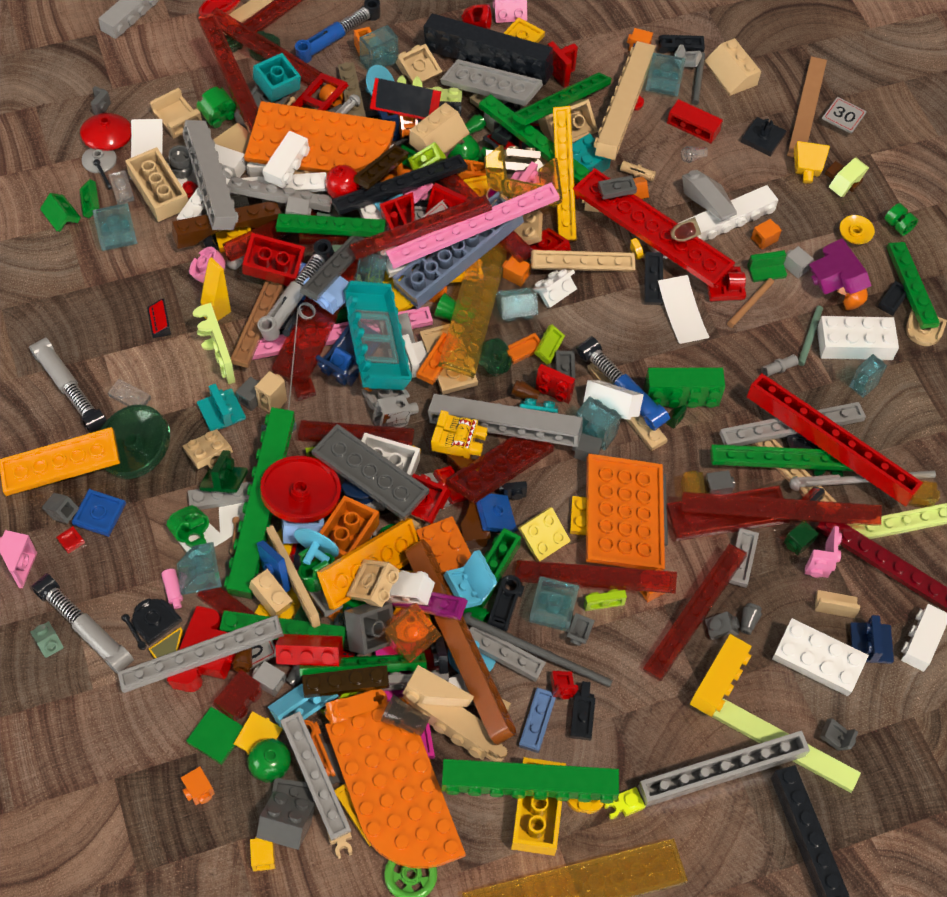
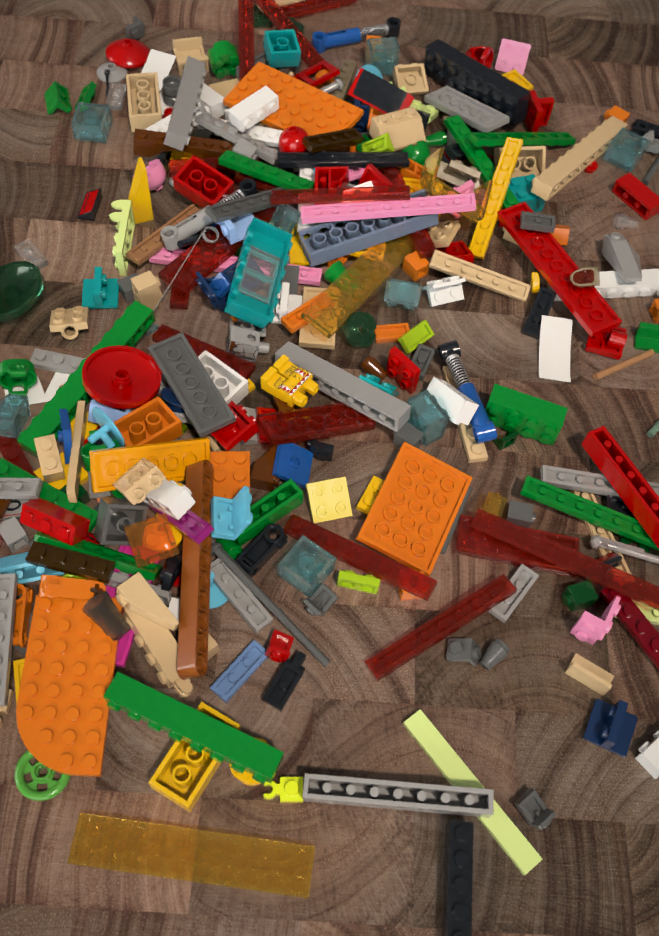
camera: 20 degrees right, 0 degrees up
(224, 475) = (69, 344): dark green bracket -> none
(627, 167) = (566, 220): tan pin -> none
(720, 676) = (438, 699): yellow brick -> none
(780, 365) = (628, 429): light grey pin -> none
(820, 657) = (549, 721): white brick -> none

